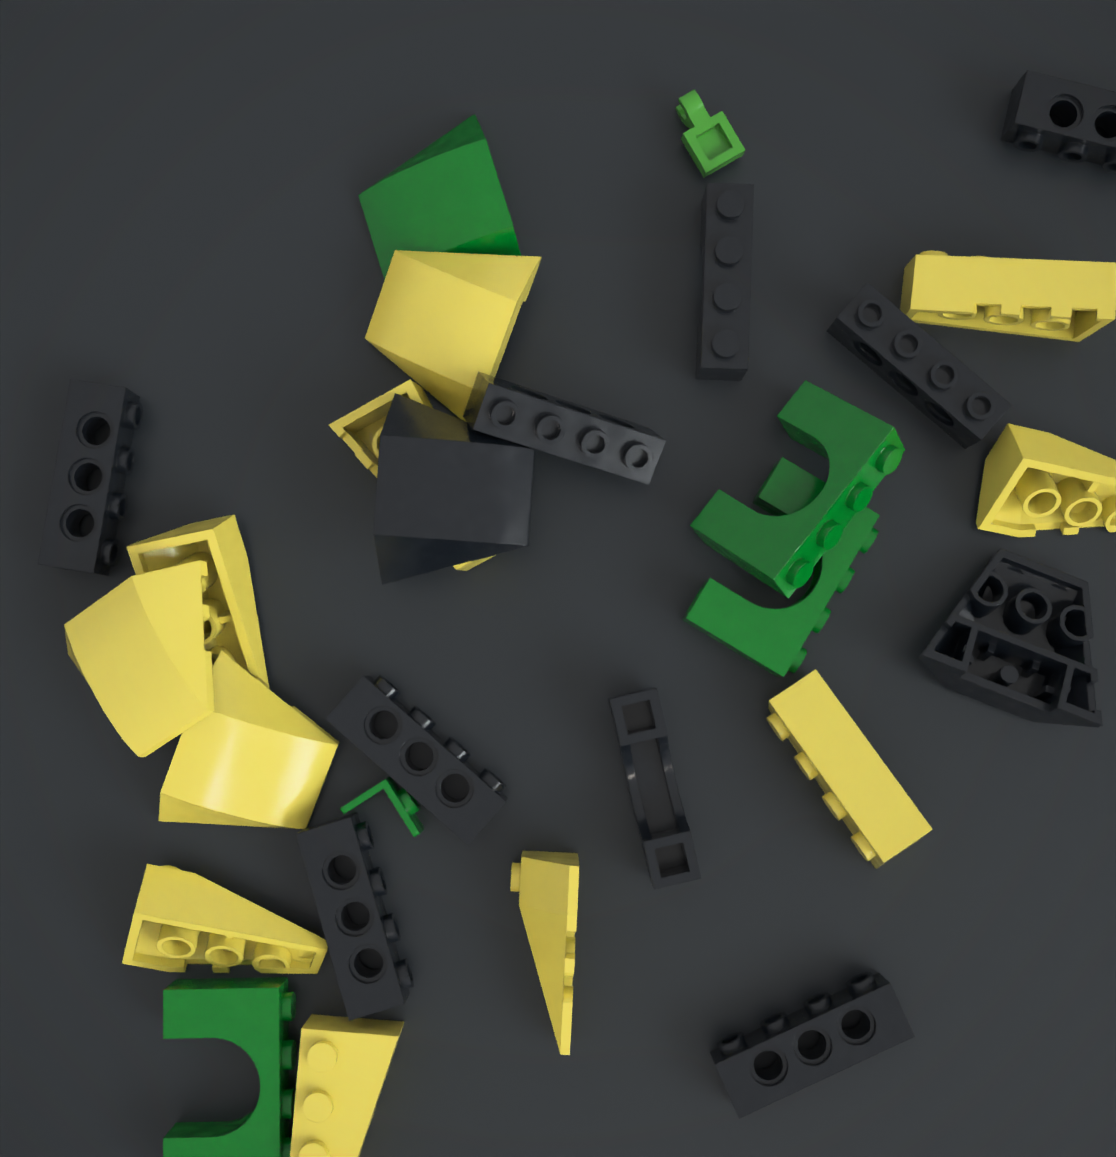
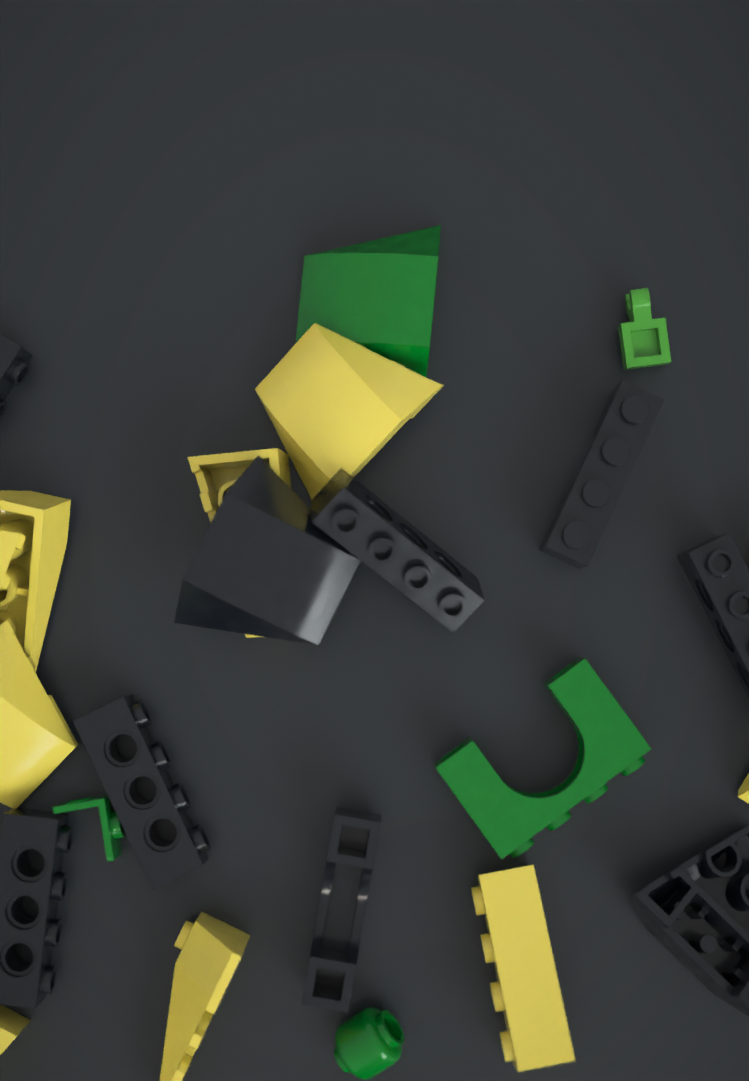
camera: 25 degrees right, 0 degrees up
(732, 903) = (368, 1043): none -> green head
(789, 546) = (554, 745): green arch -> none

